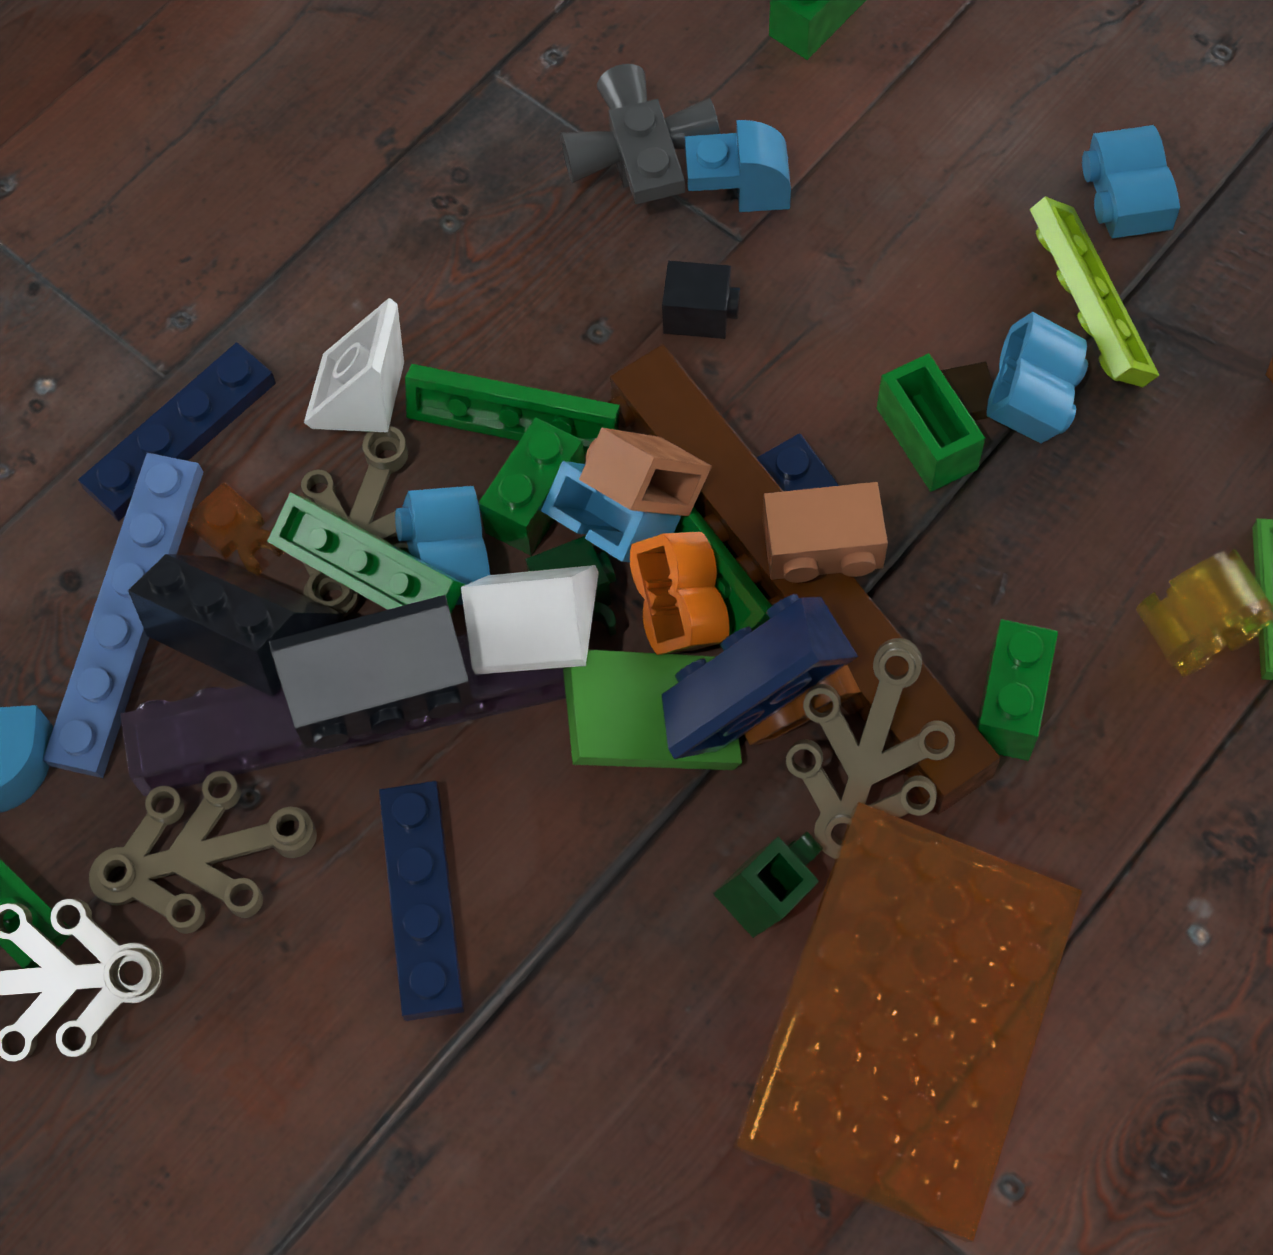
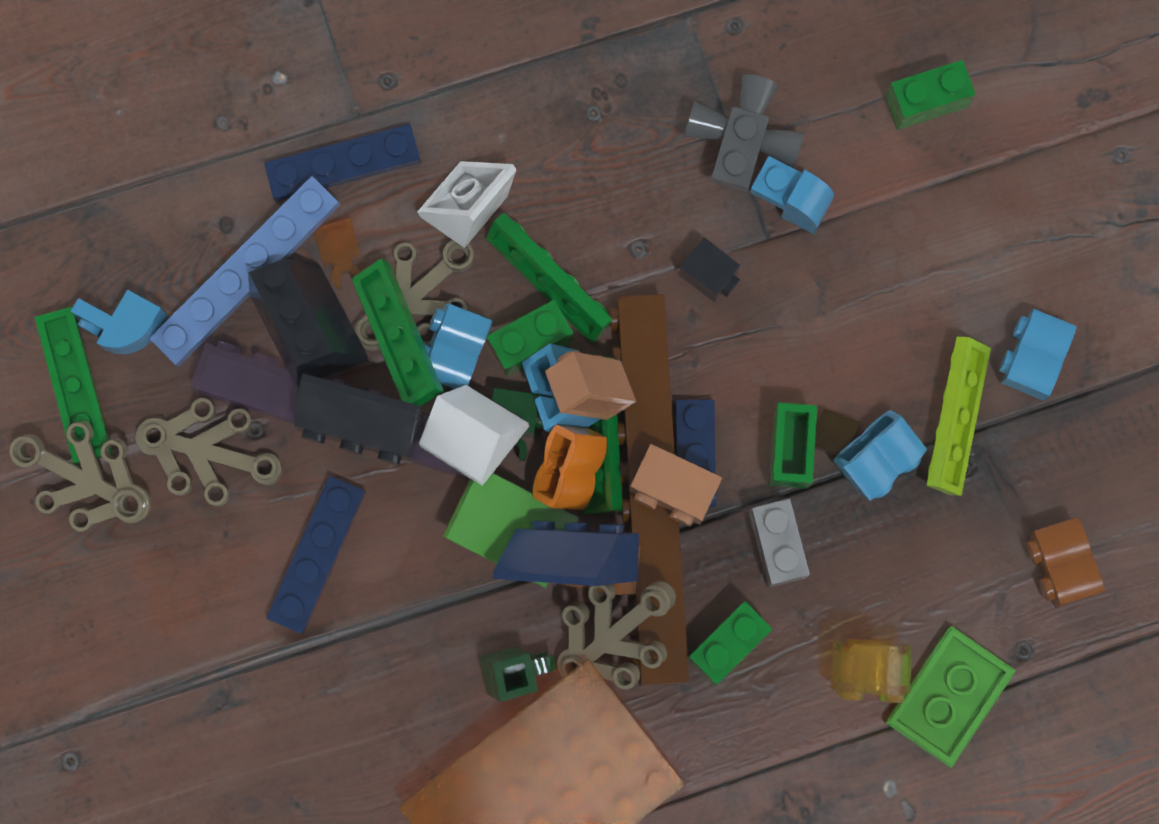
camera: 25 degrees right, 15 degrees up
(990, 541) = (779, 543): none -> light grey brick

